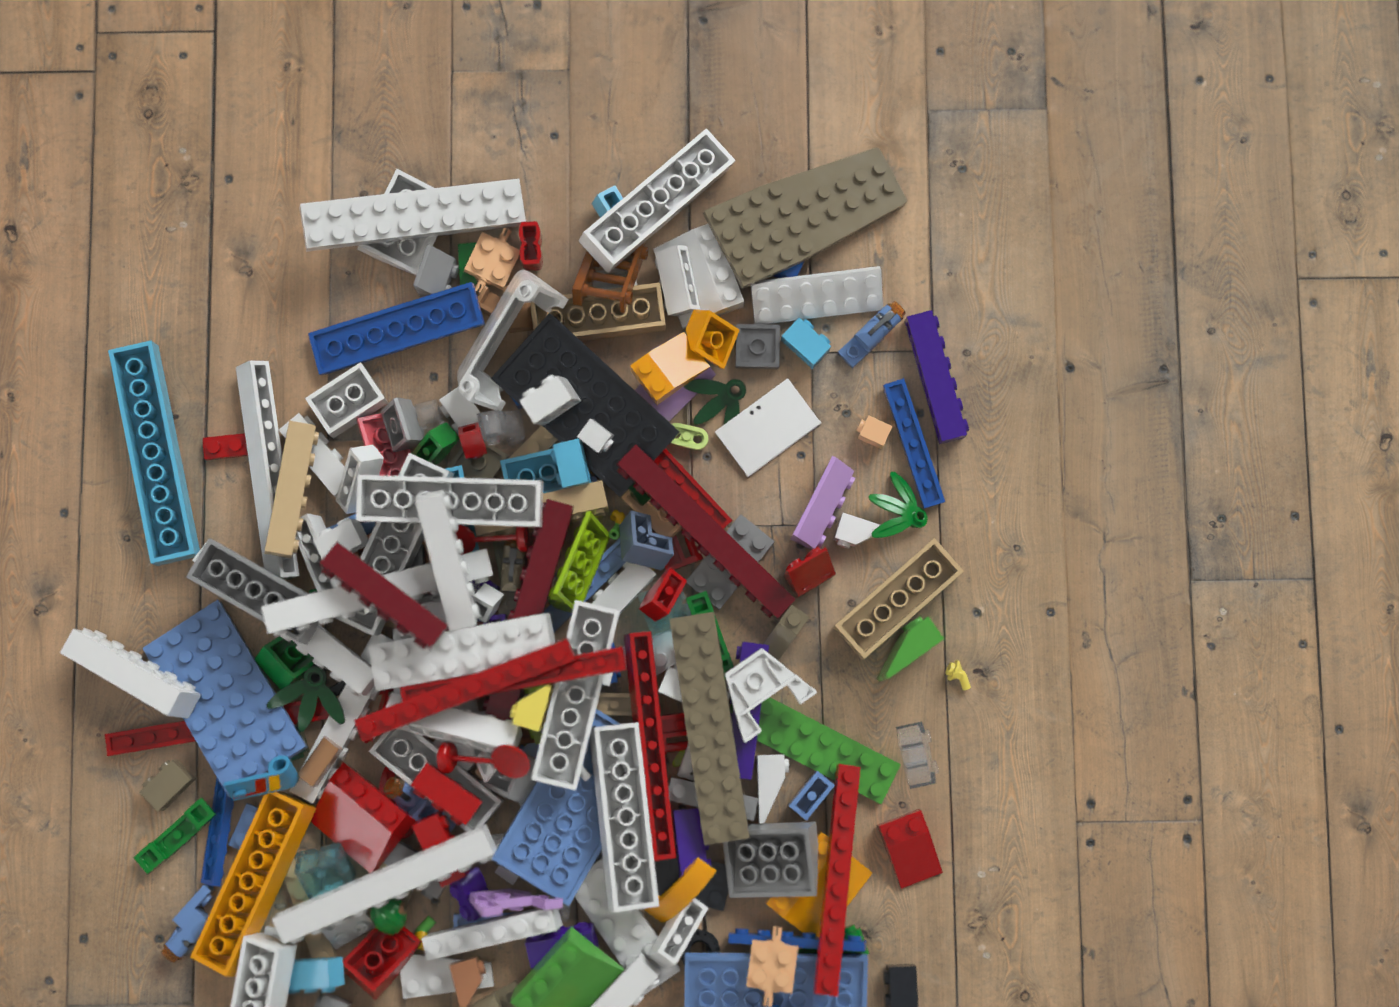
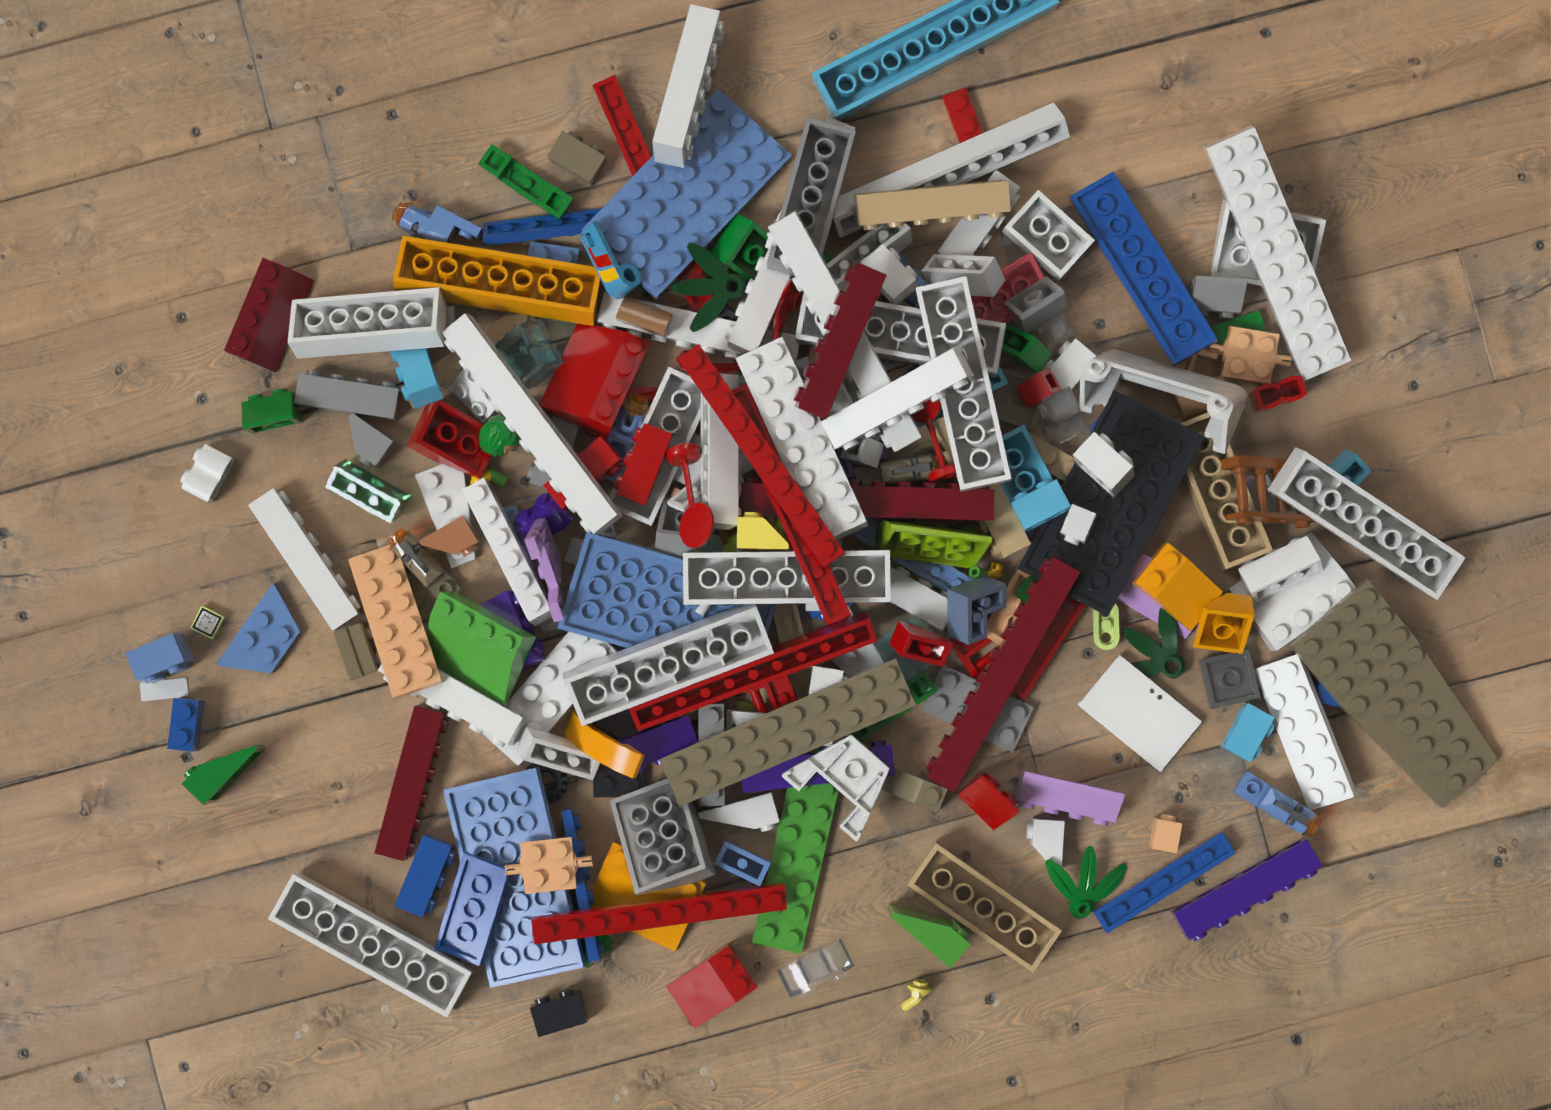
camera: 75 degrees right, 5 degrees up
(341, 632) = (790, 301): none -> red plant

